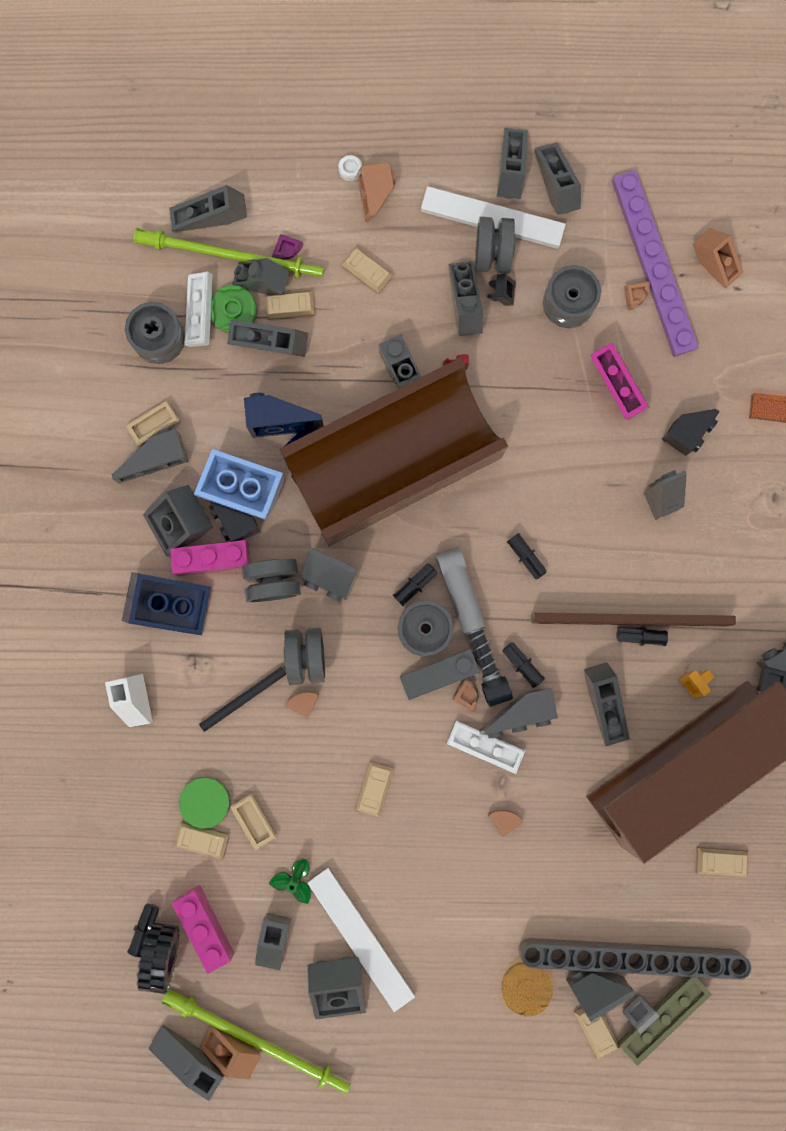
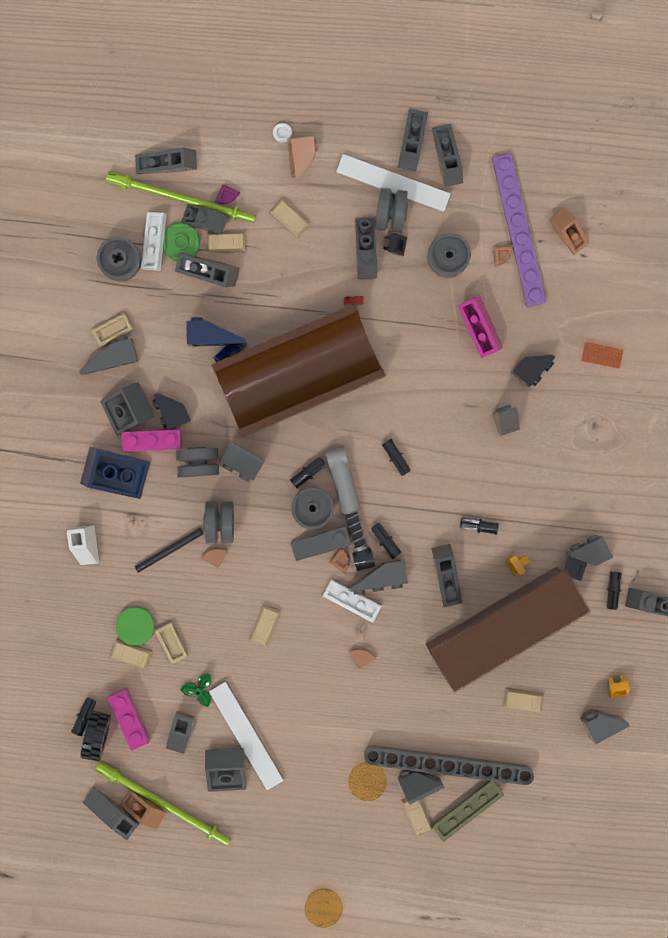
camera: 10 degrees right, 5 degrees up
(240, 484) = (178, 386): light blue slope -> none
(398, 361) = (309, 298): dark grey slope -> none
(633, 619) = (472, 512): reddish brown tile -> none
(640, 1014) = (450, 805): light grey tile -> none

